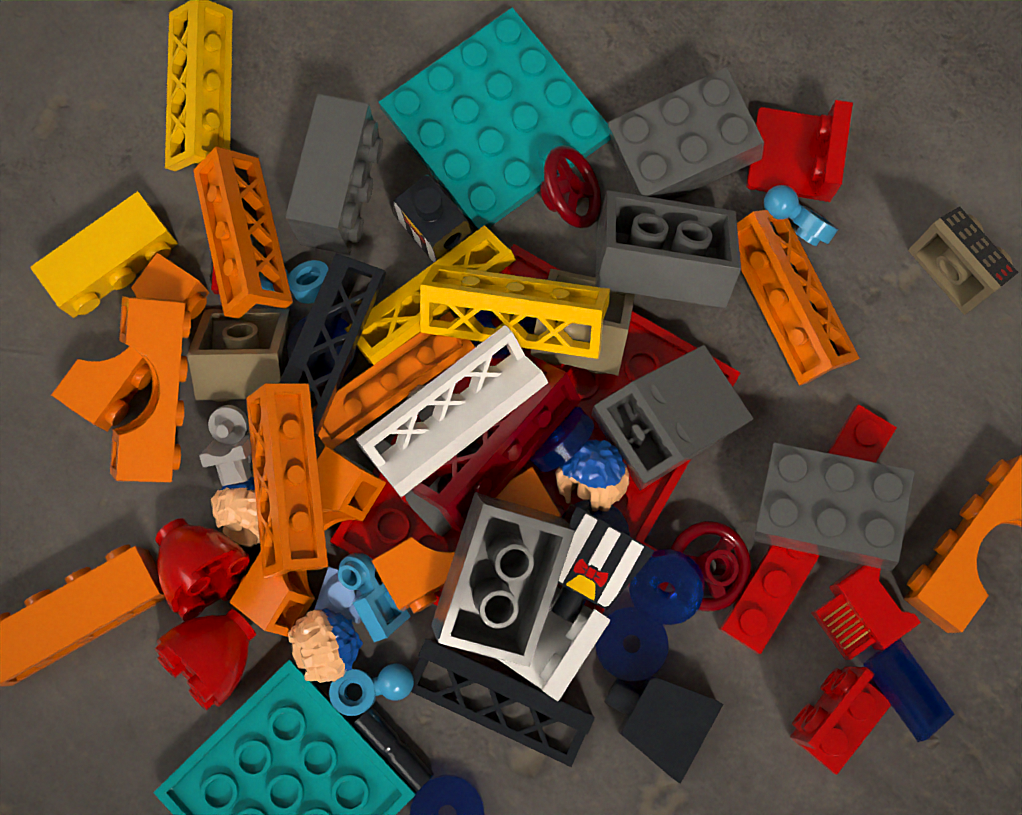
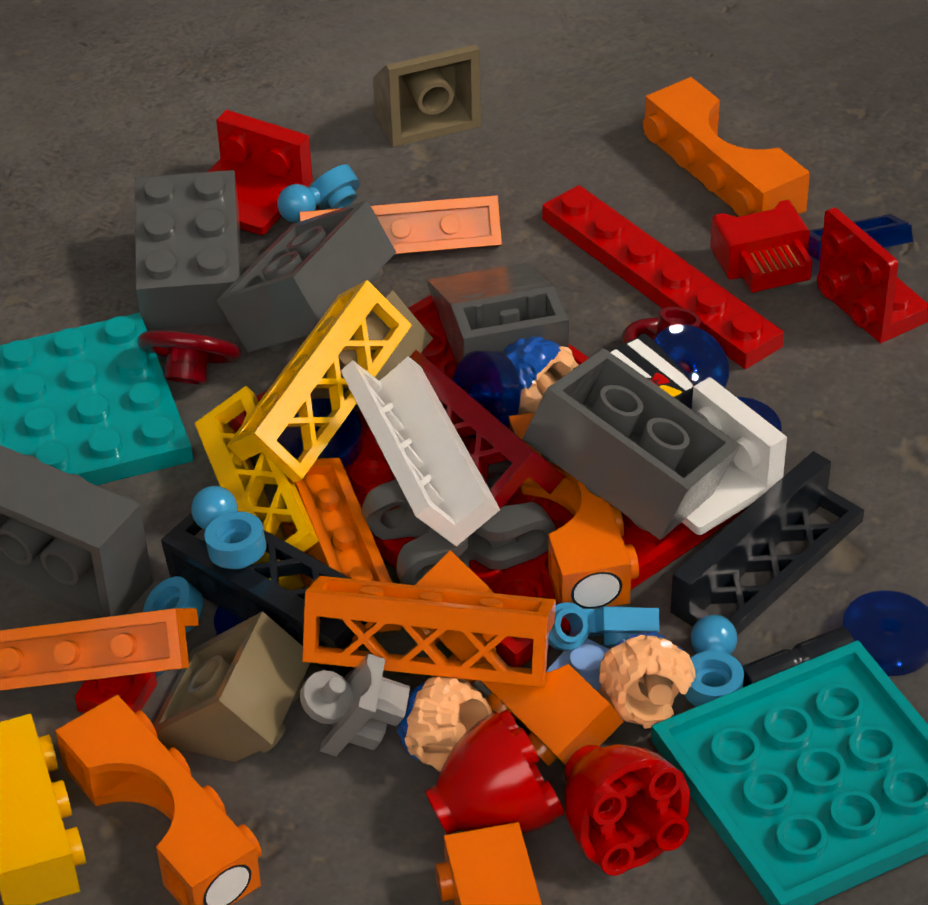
camera: 75 degrees left, 35 degrees down
(147, 445) = (182, 732): orange arch -> none
(356, 283) = (231, 536): none -> dark azure plate
(430, 217) = (160, 462): black torso -> none
(664, 721) = (840, 414): black torso -> none
(835, 506) = (647, 219): dark grey brick -> none

